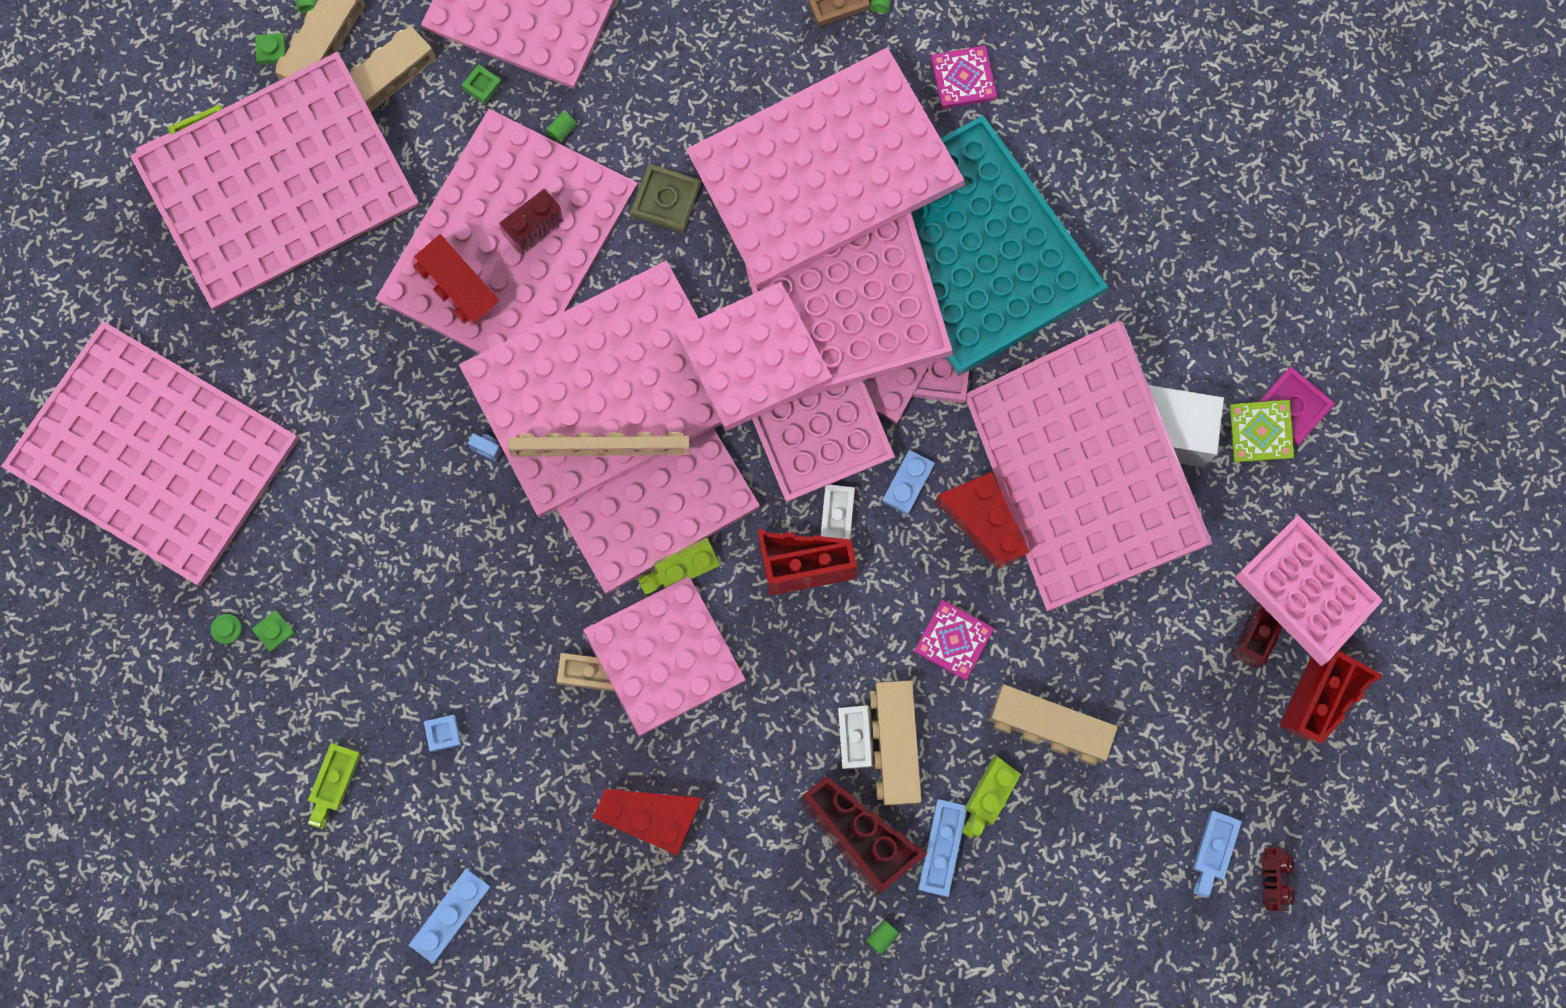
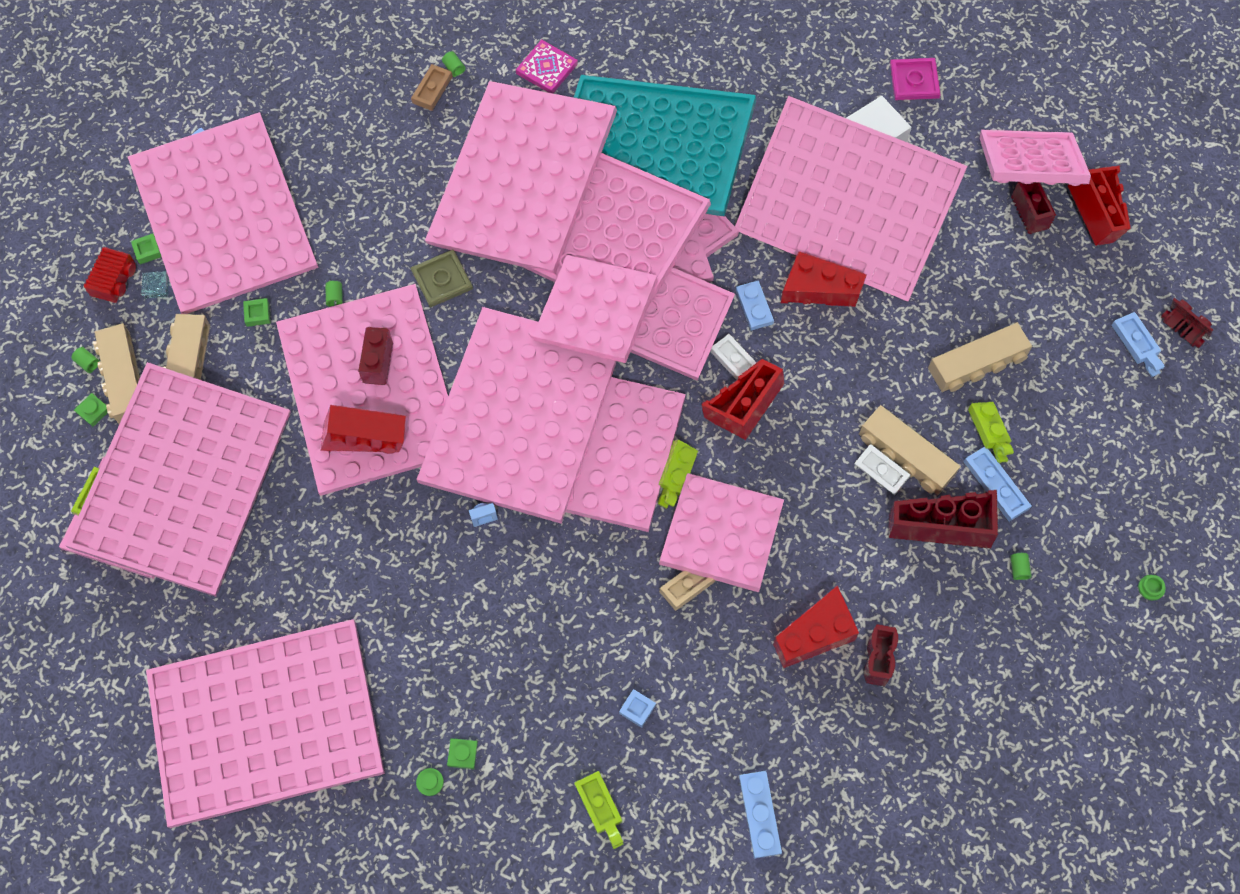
camera: 40 degrees left, 10 degrees down
(587, 445) = (564, 435): tan plate -> none
(670, 896) = (880, 650): none -> dark red brick
(953, 640) = (875, 366): dark pink tile -> none
(1261, 431) = (916, 103): lime tile -> none

